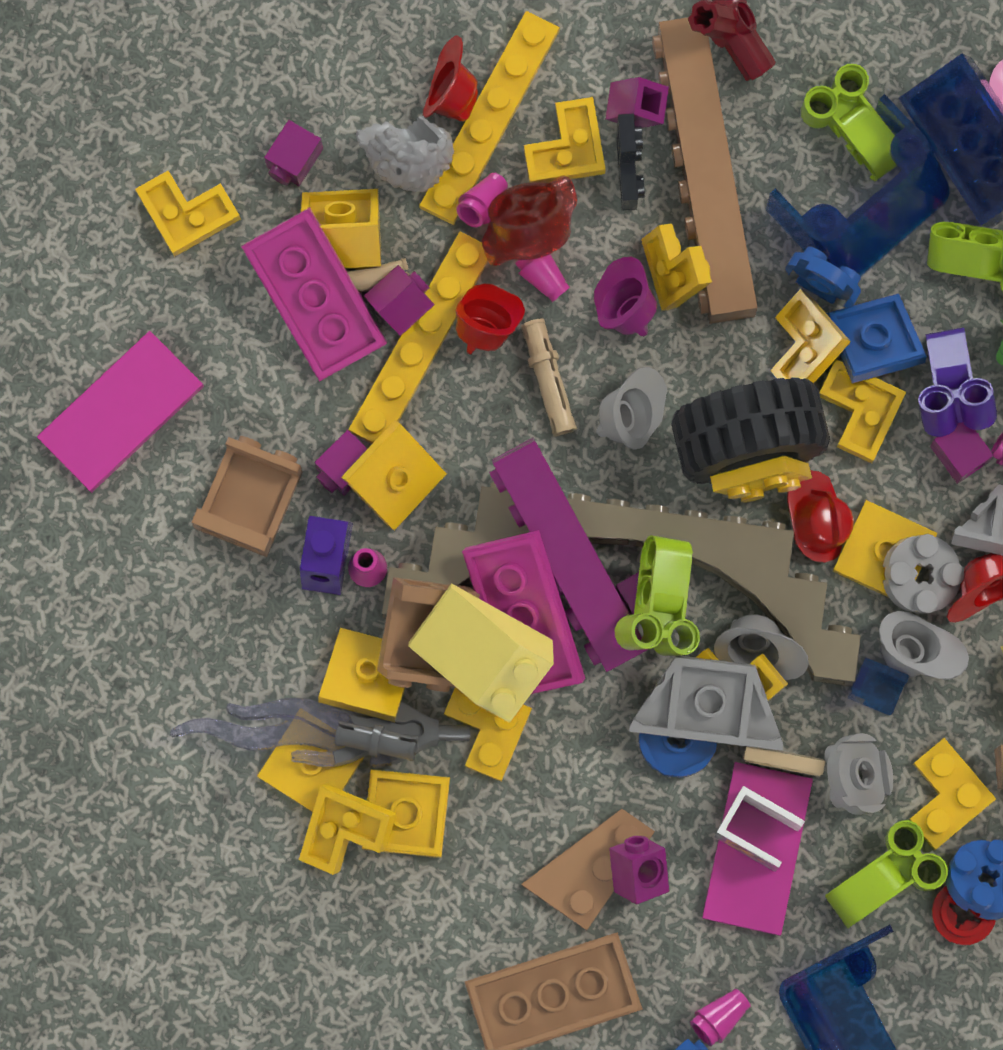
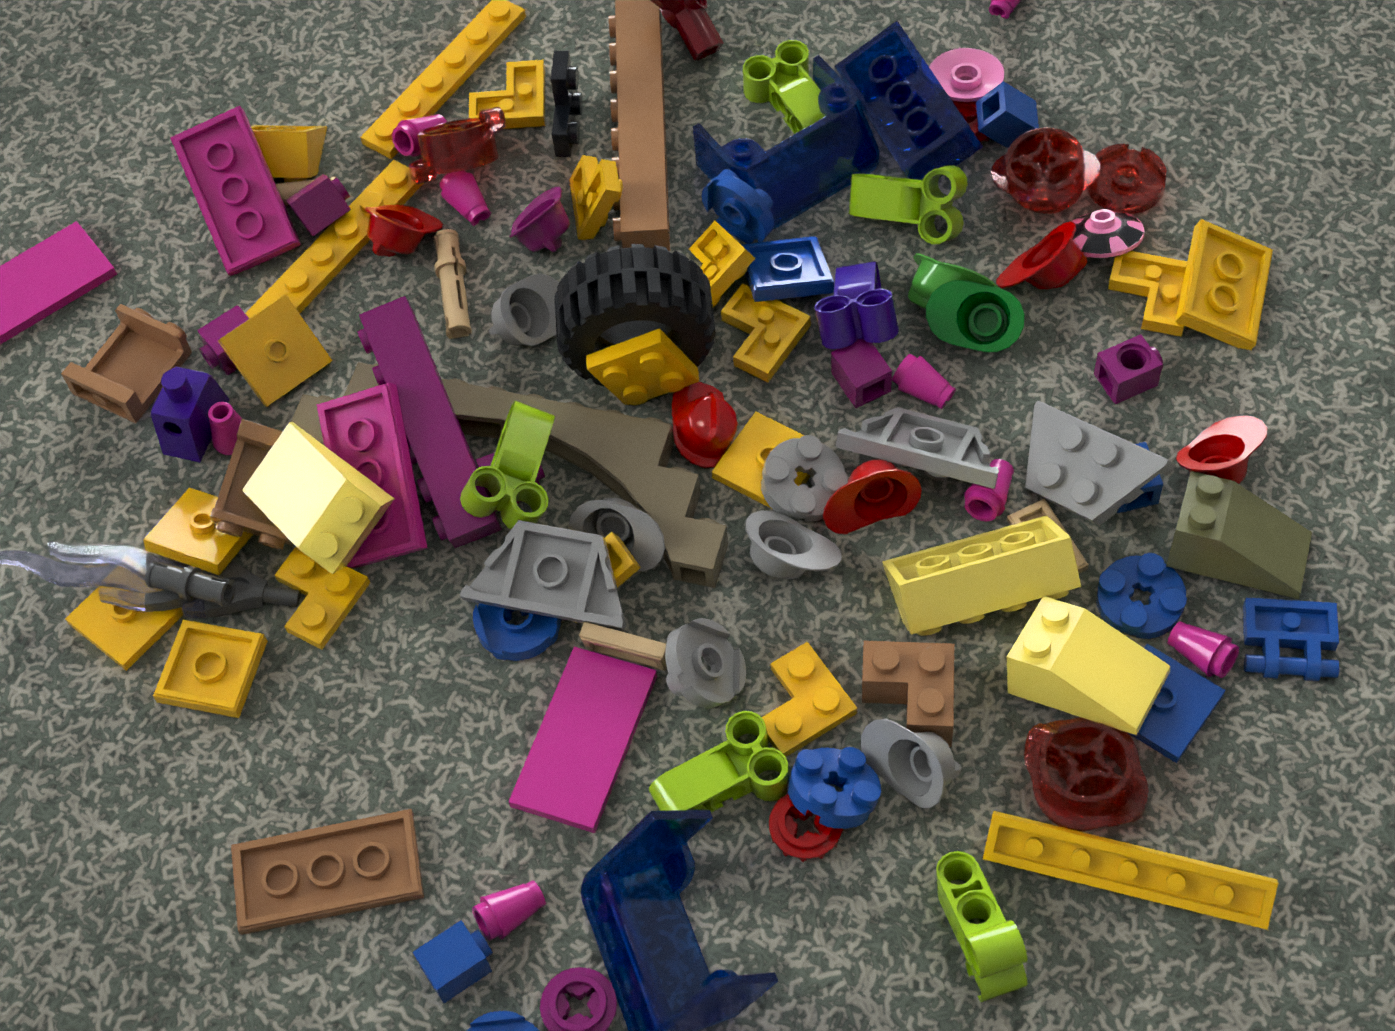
camera: 10 degrees right, 20 degrees down
(184, 222) = (137, 137): yellow plate -> none
(293, 154) = (252, 87): magenta brick -> none
(341, 819) = (129, 663): yellow plate -> none
(408, 156) = (355, 89): light grey piece -> none
(453, 85) = (412, 47): red piece -> none
(581, 877) = (398, 743): medium nougat wing -> none
(639, 97) = (590, 57): magenta brick -> none
(639, 869) = (458, 748): magenta brick -> none
(767, 807) = (571, 672): white piece -> none
(878, 686) = (741, 583): clear blue panel -> none

